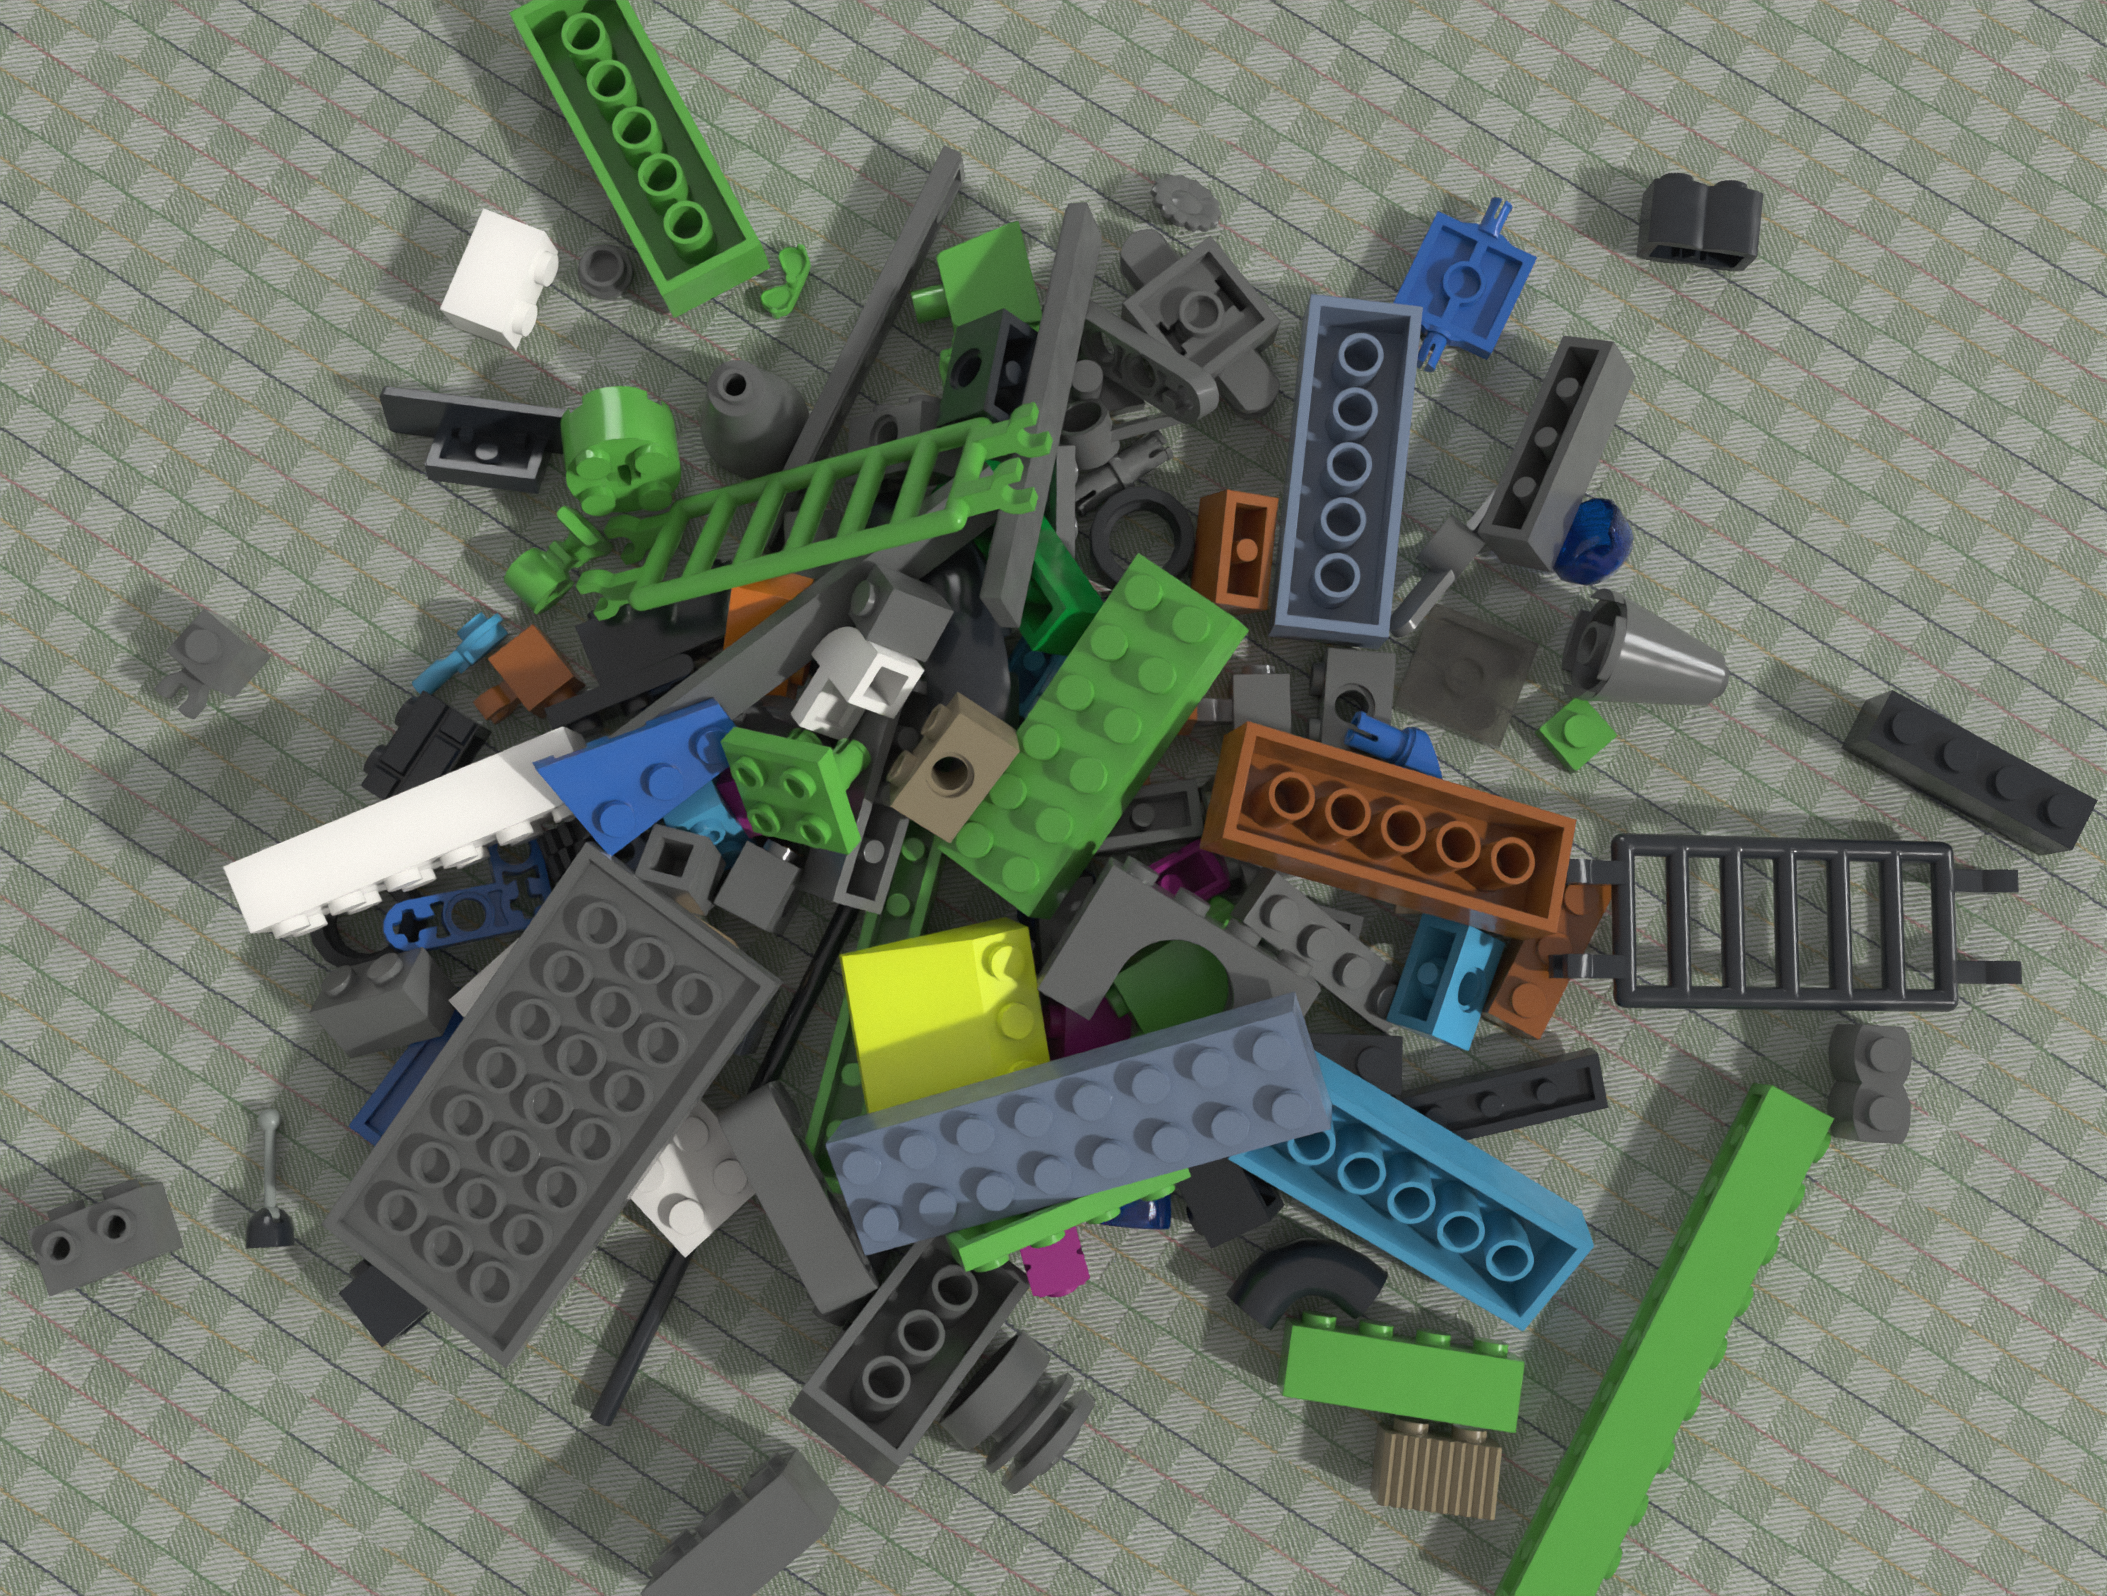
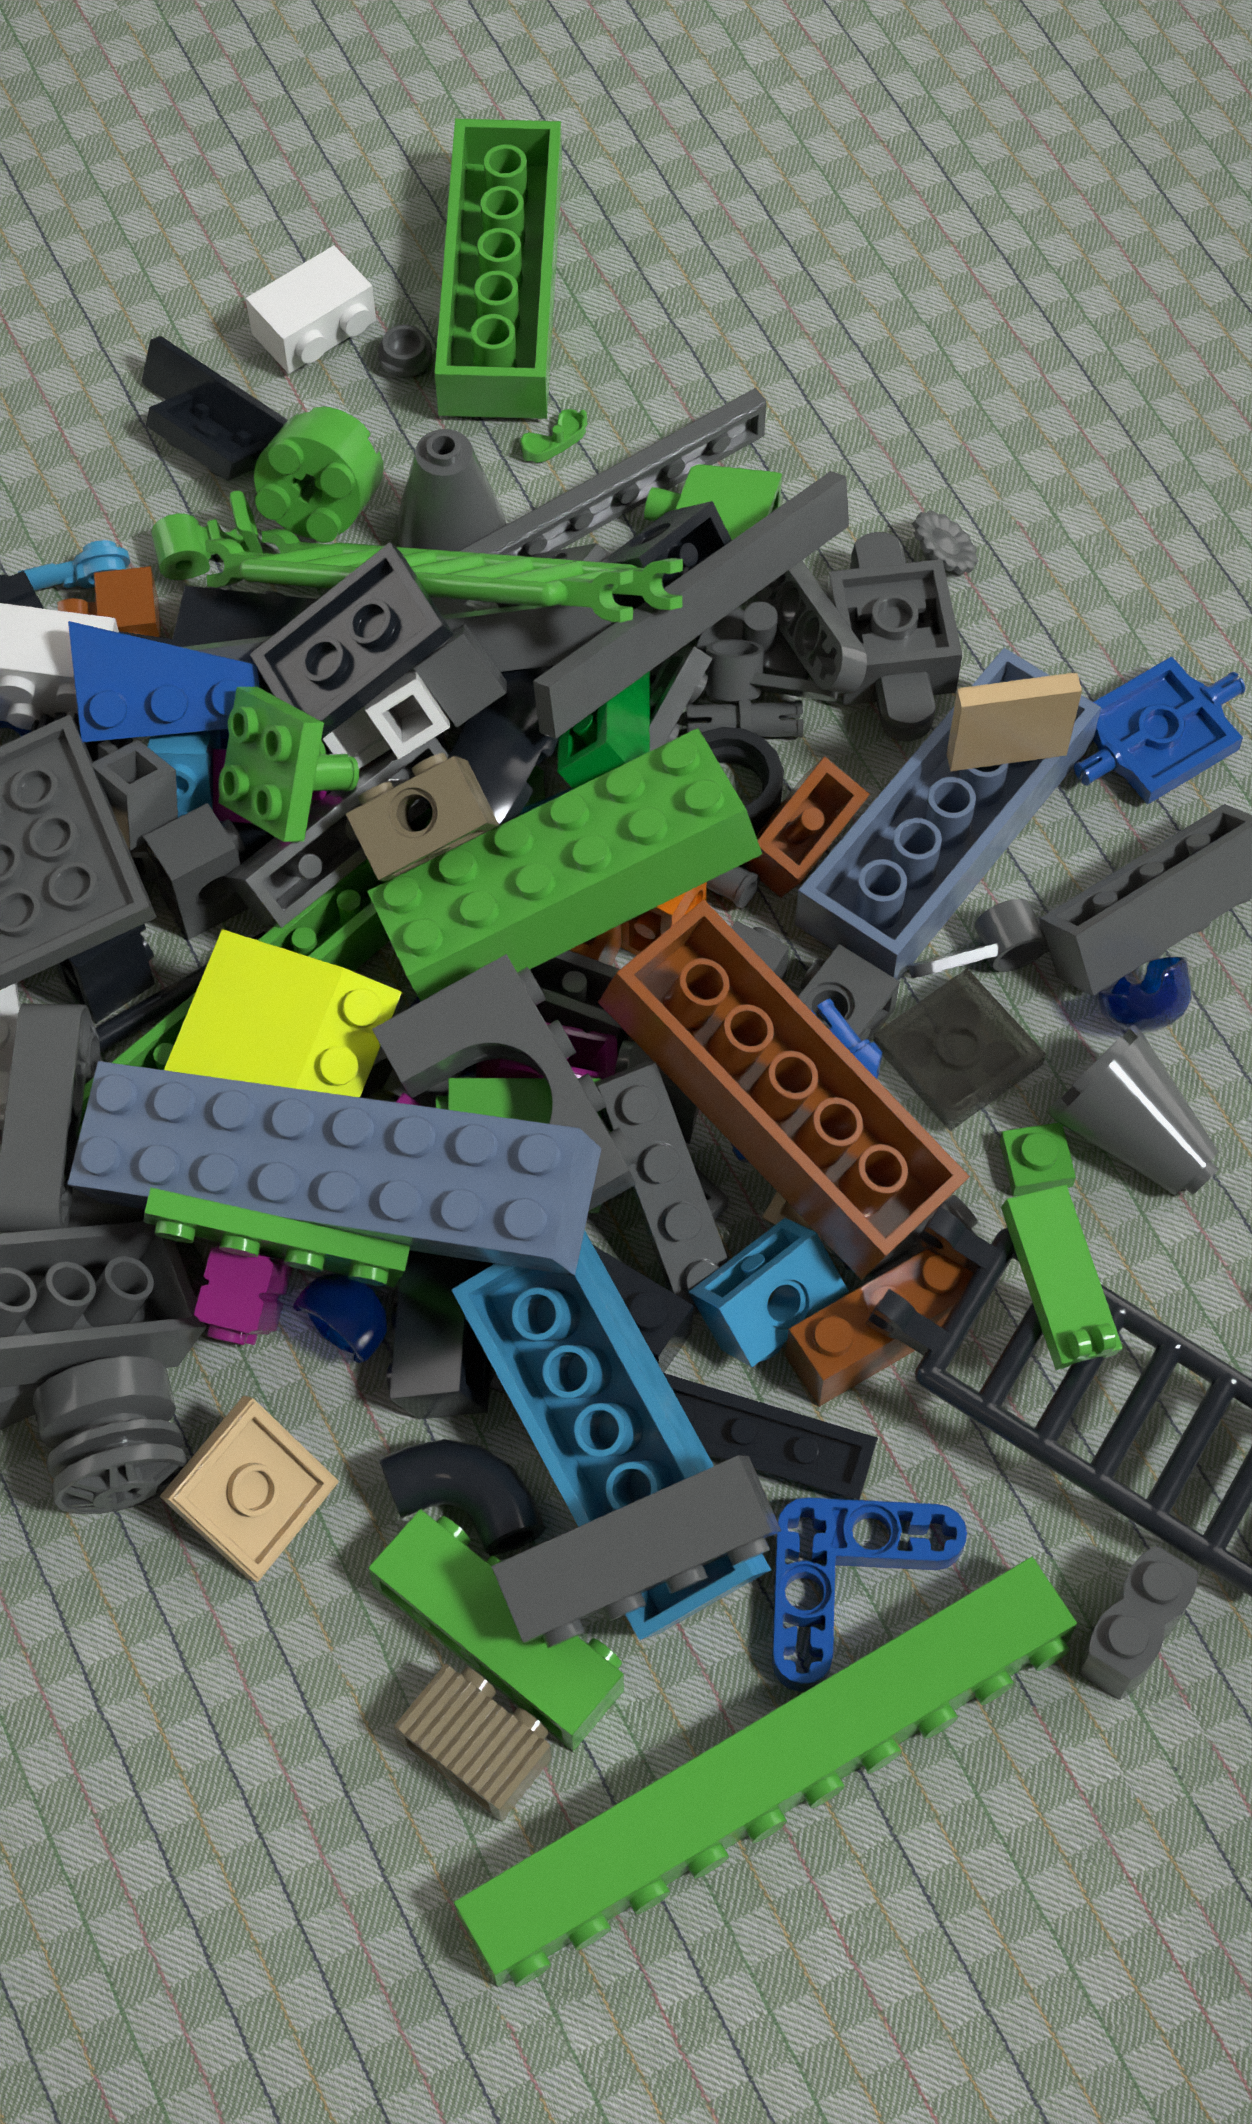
camera: 30 degrees right, 20 degrees down
(797, 645) = (353, 641): none -> black plate
(1147, 1383) = (249, 1488): none -> tan tile
(1380, 377) = (1013, 721): none -> tan tile
(1502, 1285) = (637, 1549): none -> dark grey brick
(1607, 1149) = (840, 1548): none -> blue beam
(1686, 857) = (1061, 1276): none -> bright green hinge

